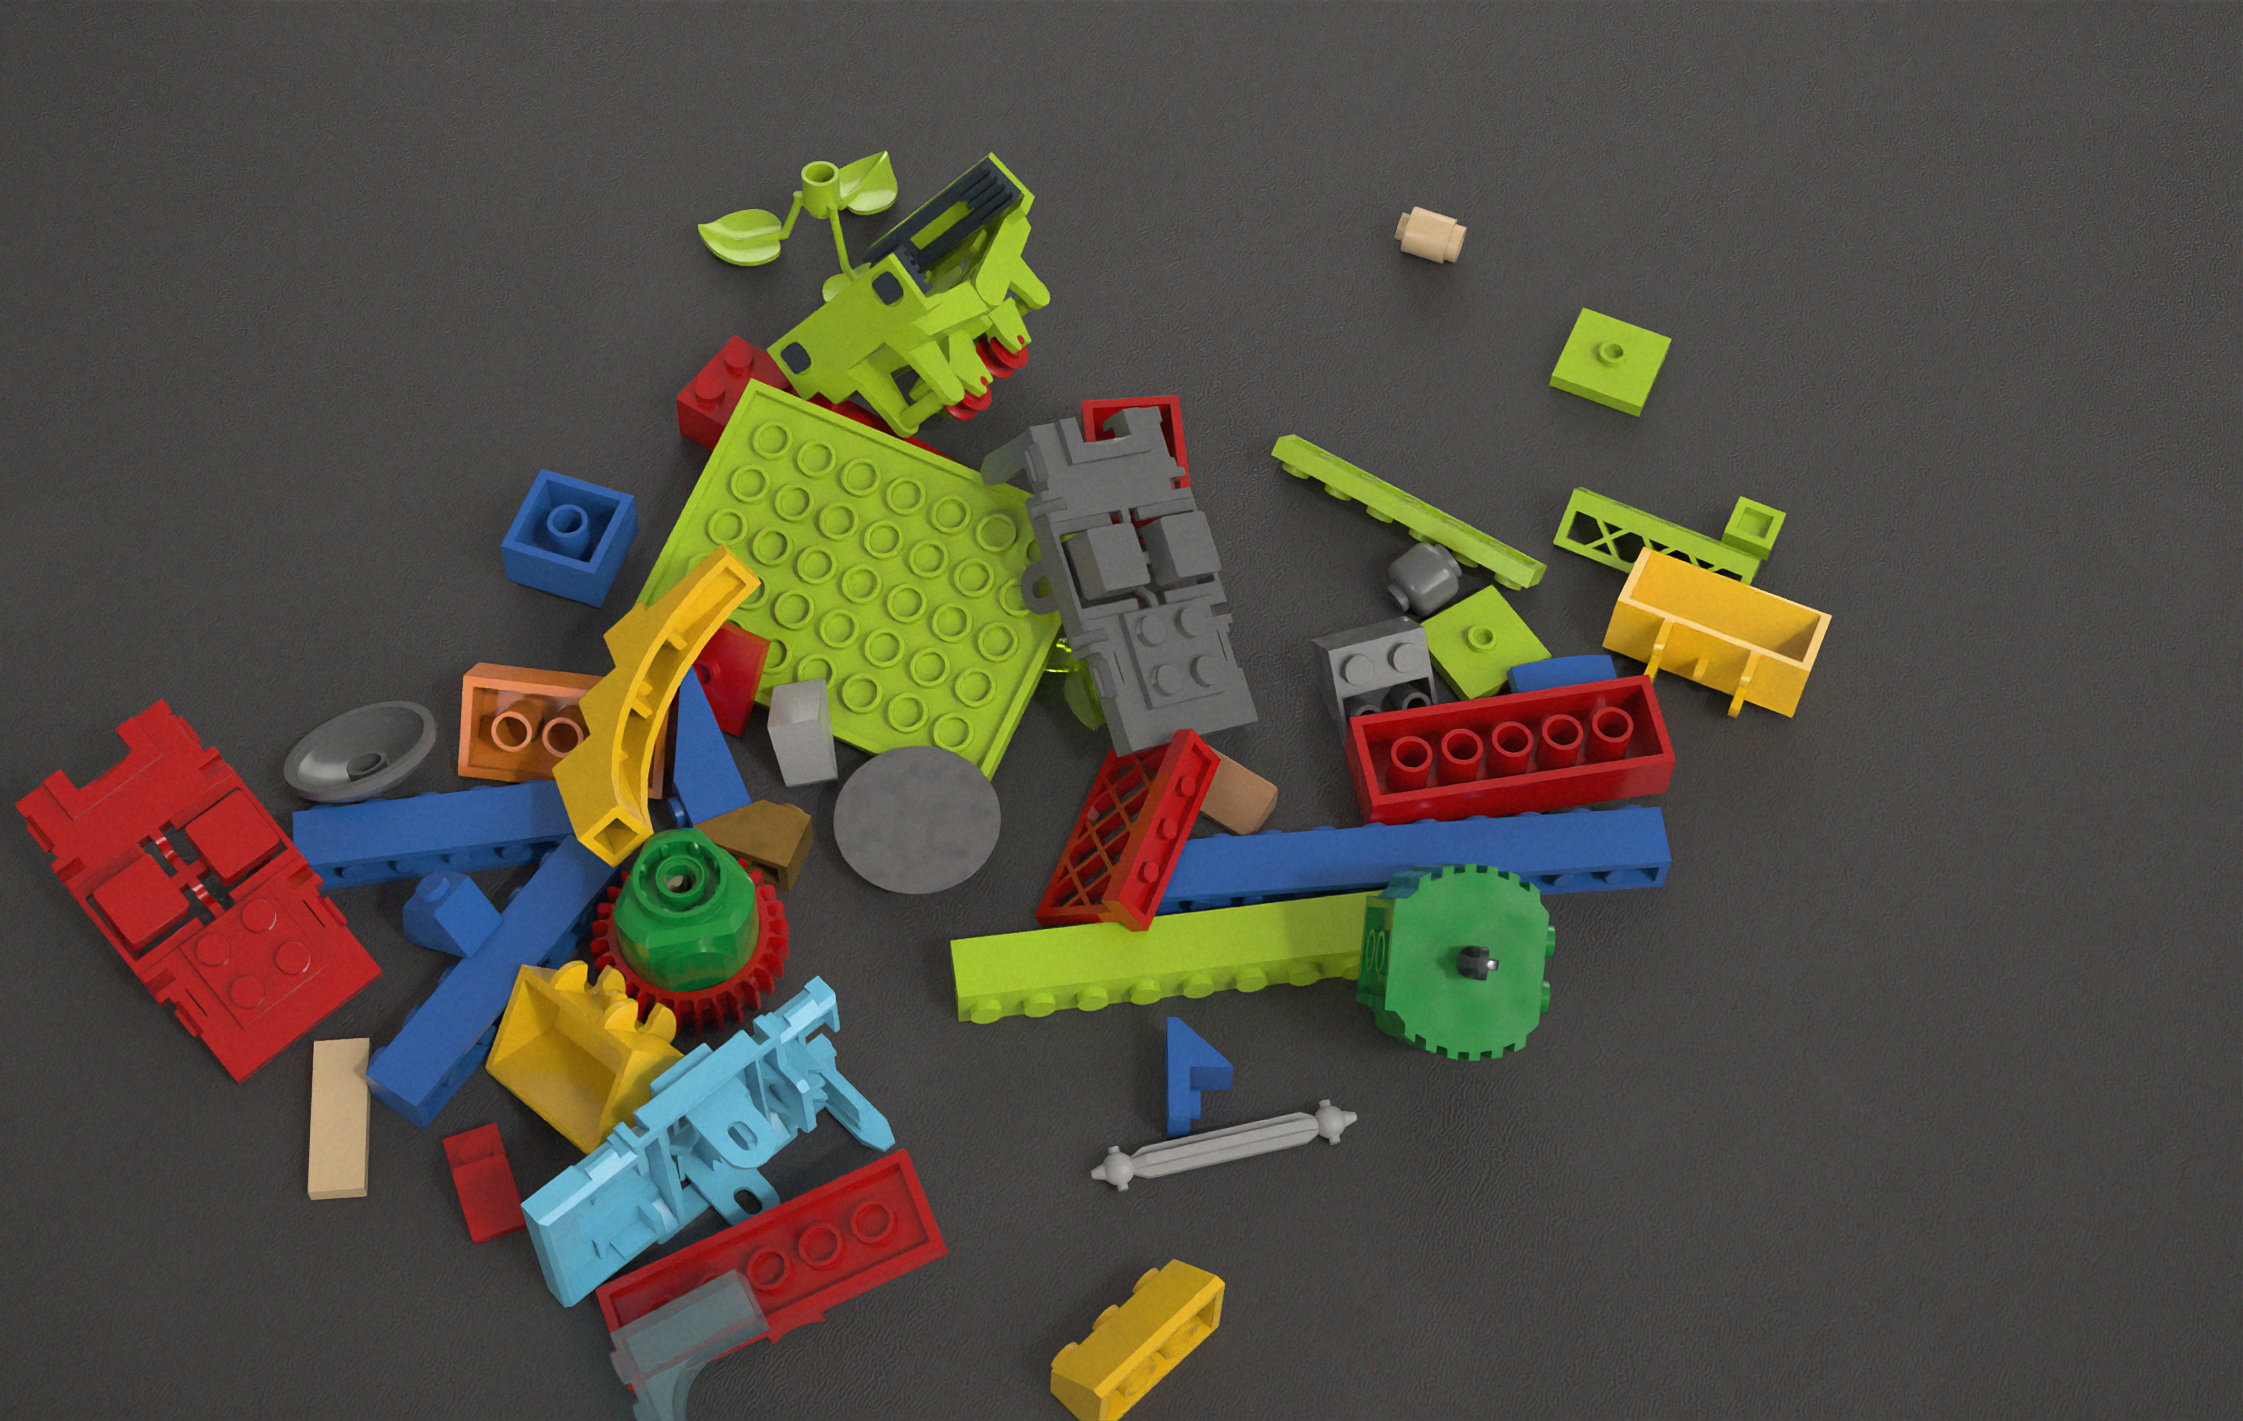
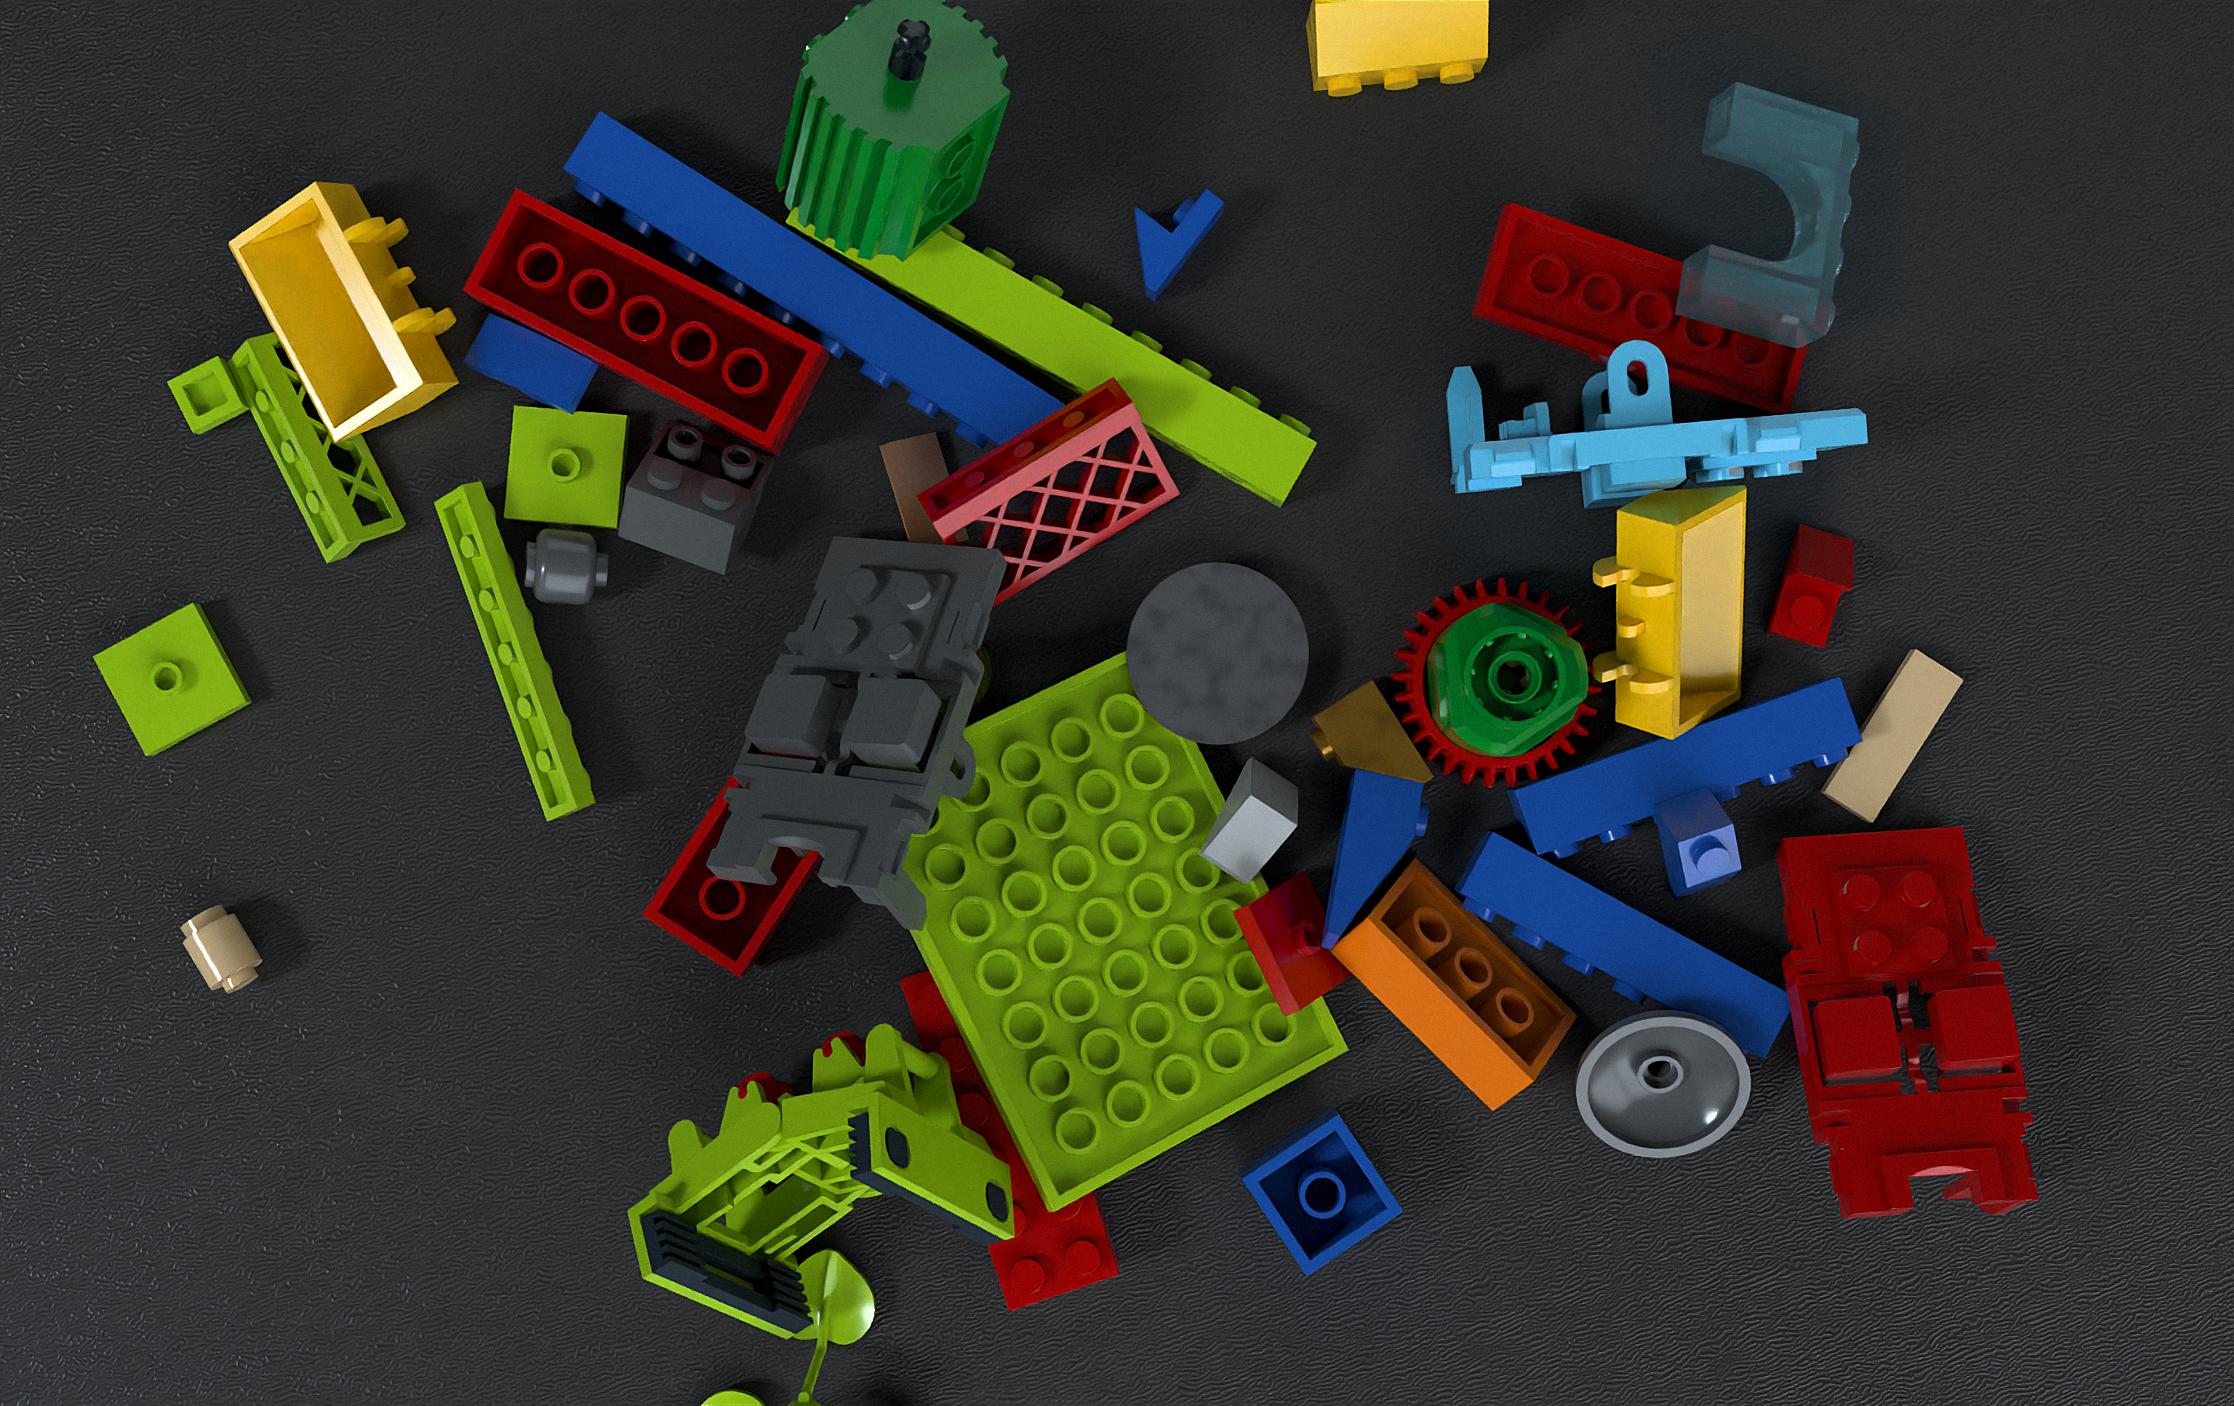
camera: 140 degrees left, 30 degrees up
(652, 651) = (1425, 920): yellow arch -> none
(1223, 1145) = (1184, 164): light grey wheel -> none

